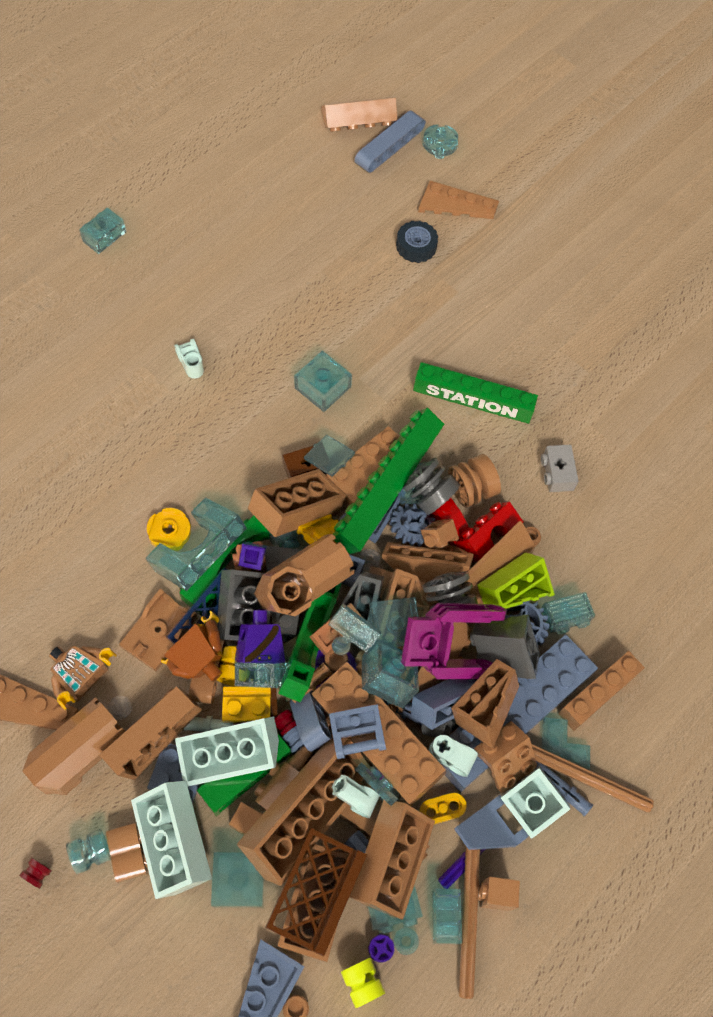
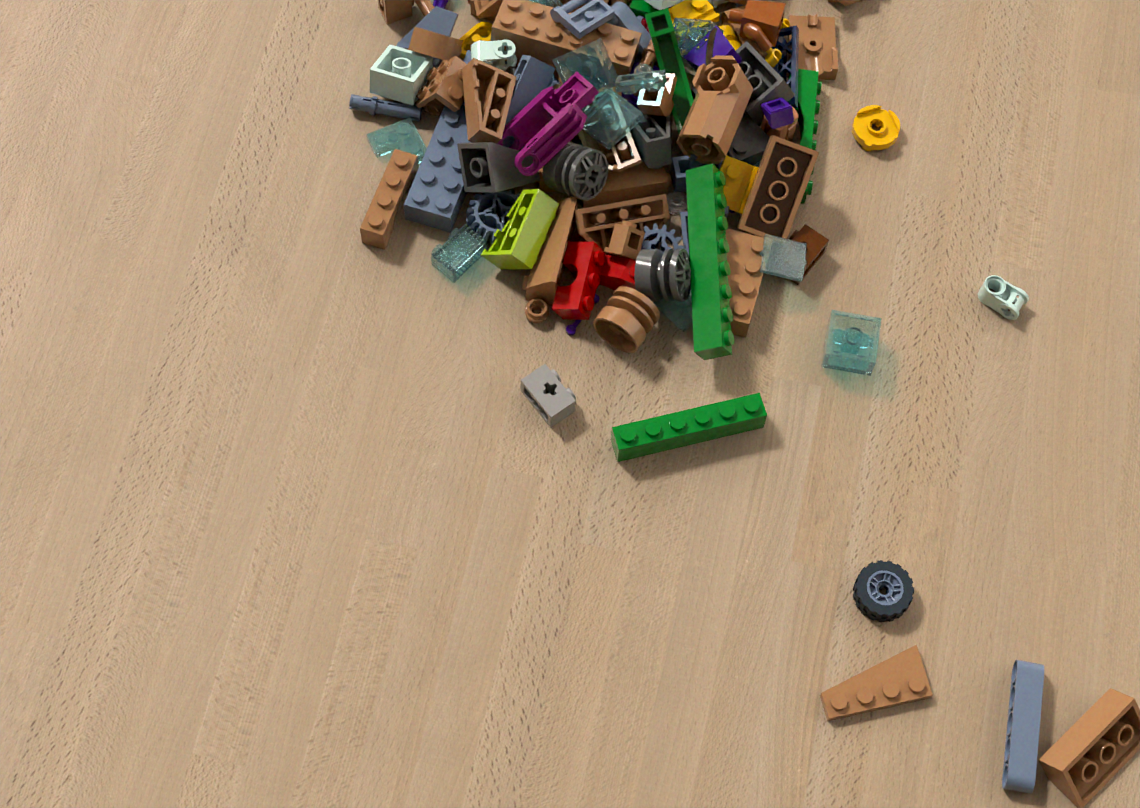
camera: 150 degrees right, 0 degrees up
(187, 567) = (823, 134): clear light blue arch -> none
(438, 148) = (952, 782): clear light blue plate -> none
(494, 804) = (435, 44): none -> medium nougat brick
(592, 779) = (365, 123): medium nougat axle -> none

